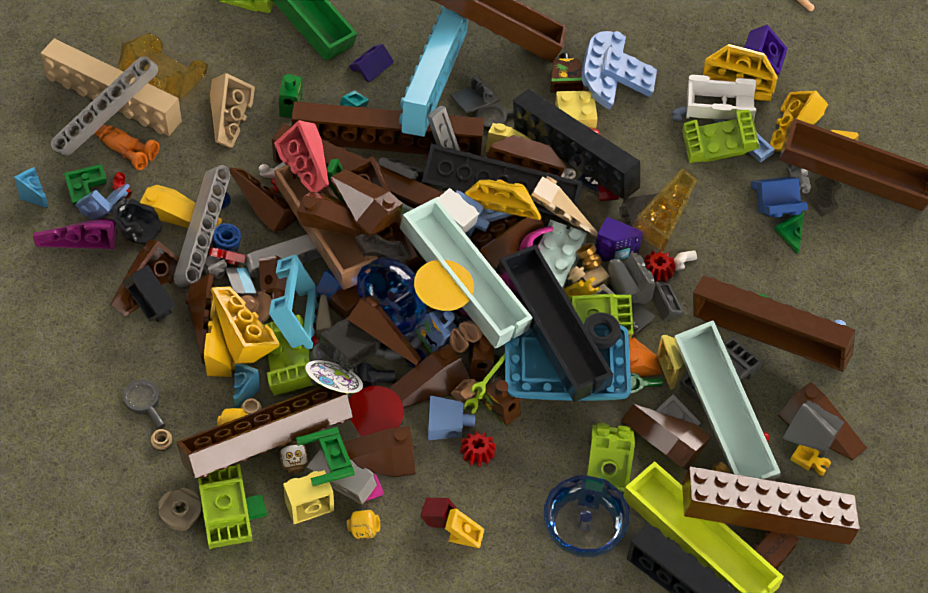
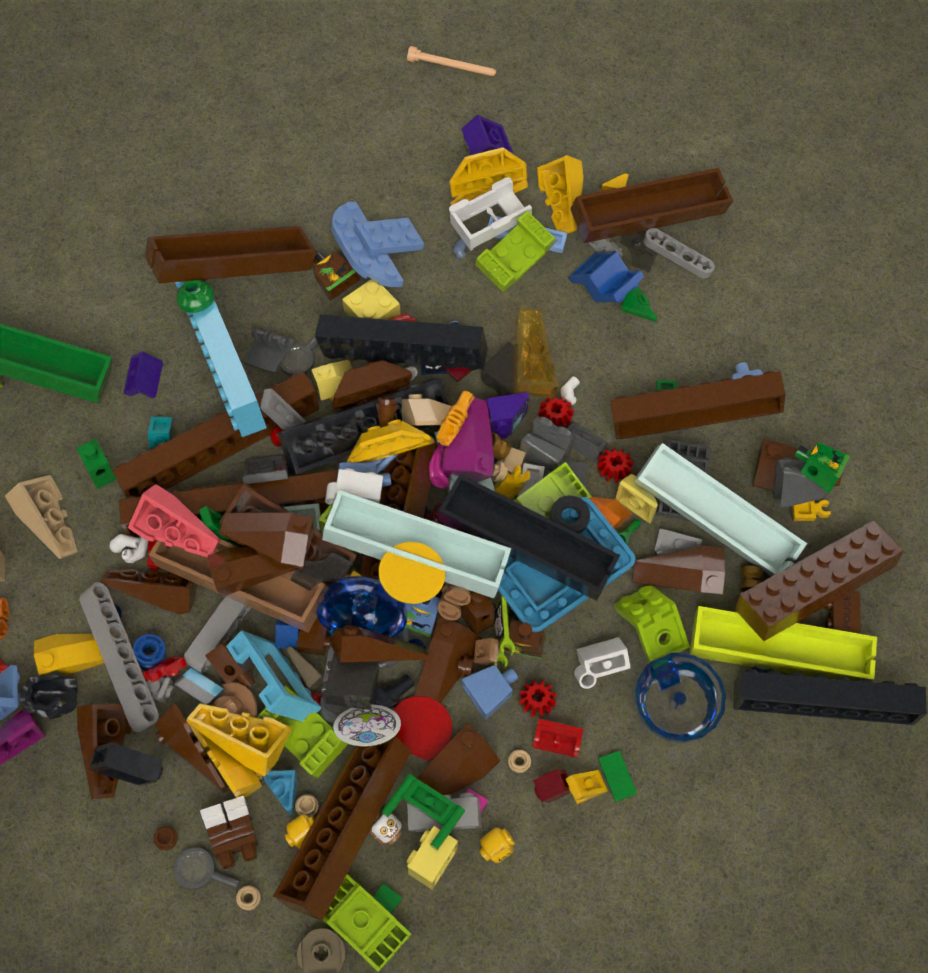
camera: 35 degrees left, 10 degrees up
(138, 364) = (165, 838): none -> reddish brown plate
(185, 387) = (233, 839): none -> reddish brown hips
(267, 156) = (122, 541): none -> white arm
(429, 476) = (519, 754): none -> tan plate
(442, 390) = (466, 666): none -> reddish brown plate
(444, 21) = (197, 300): none -> green piece
(470, 485) = (557, 738): none -> red hinge
(494, 542) = (617, 776): none -> green tile
(522, 175) = (386, 410): none -> reddish brown cone
(548, 453) = (601, 660): none -> white hinge
(566, 210) = (454, 419): none -> light orange hinge
(567, 237) = (472, 448): none -> magenta wedge
(673, 325) = (622, 468): none -> red gear
(838, 421) = (822, 464): none -> green torso
(859, 214) = (677, 255): none -> light grey beam

